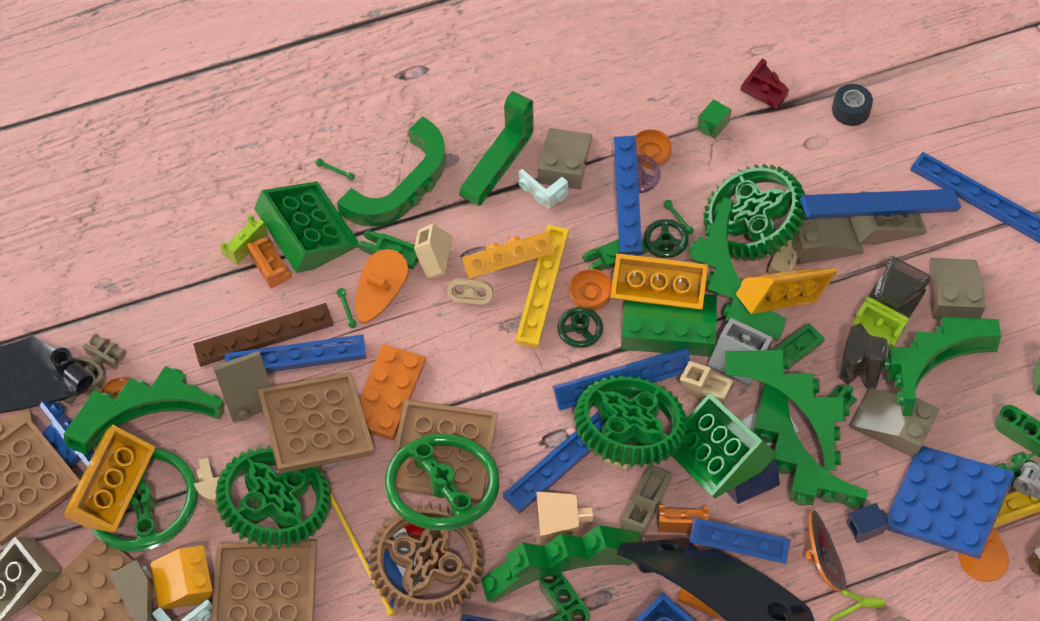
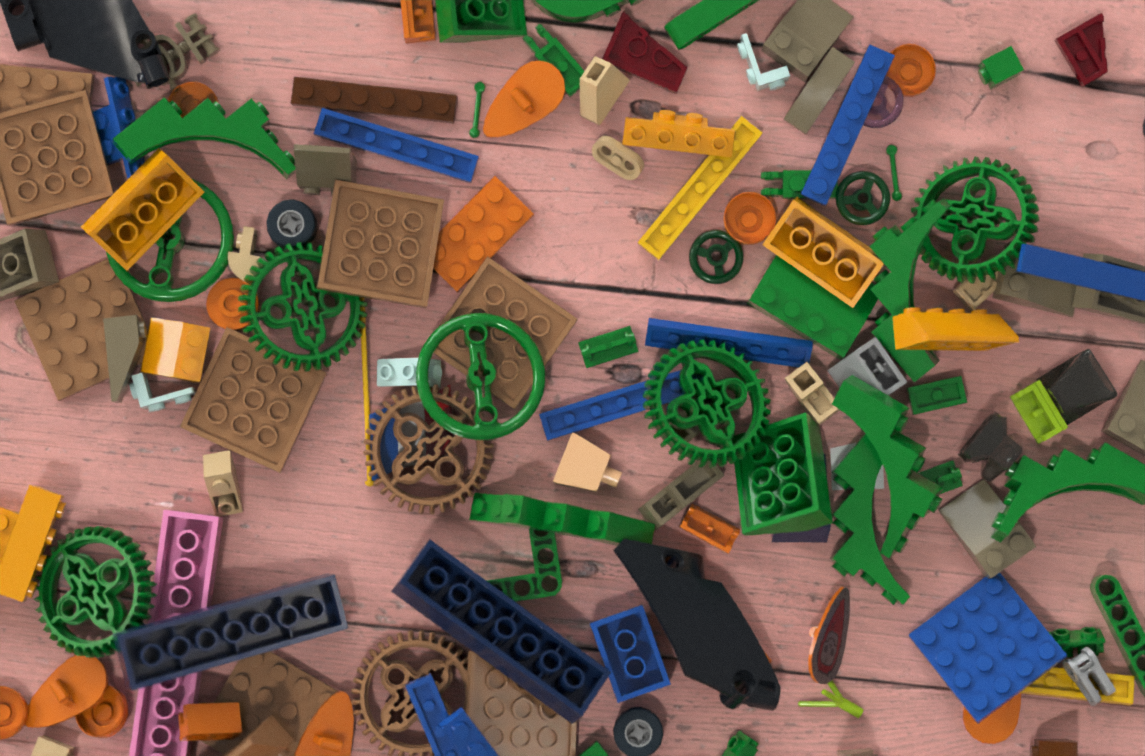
camera: 25 degrees right, 25 degrees up
(209, 528) = (223, 304): none -> orange piece
(234, 440) = (284, 220): none -> black wheel
(376, 513) = (403, 372): none -> light aqua bracket
(457, 219) = (641, 56): none -> dark red wing
(532, 423) = (608, 347): none -> green hinge
(594, 185) = (819, 90): none -> dark tan slope
(739, 540) = (750, 584): blue plate -> none
(867, 522) = (893, 626): dark blue brick -> none

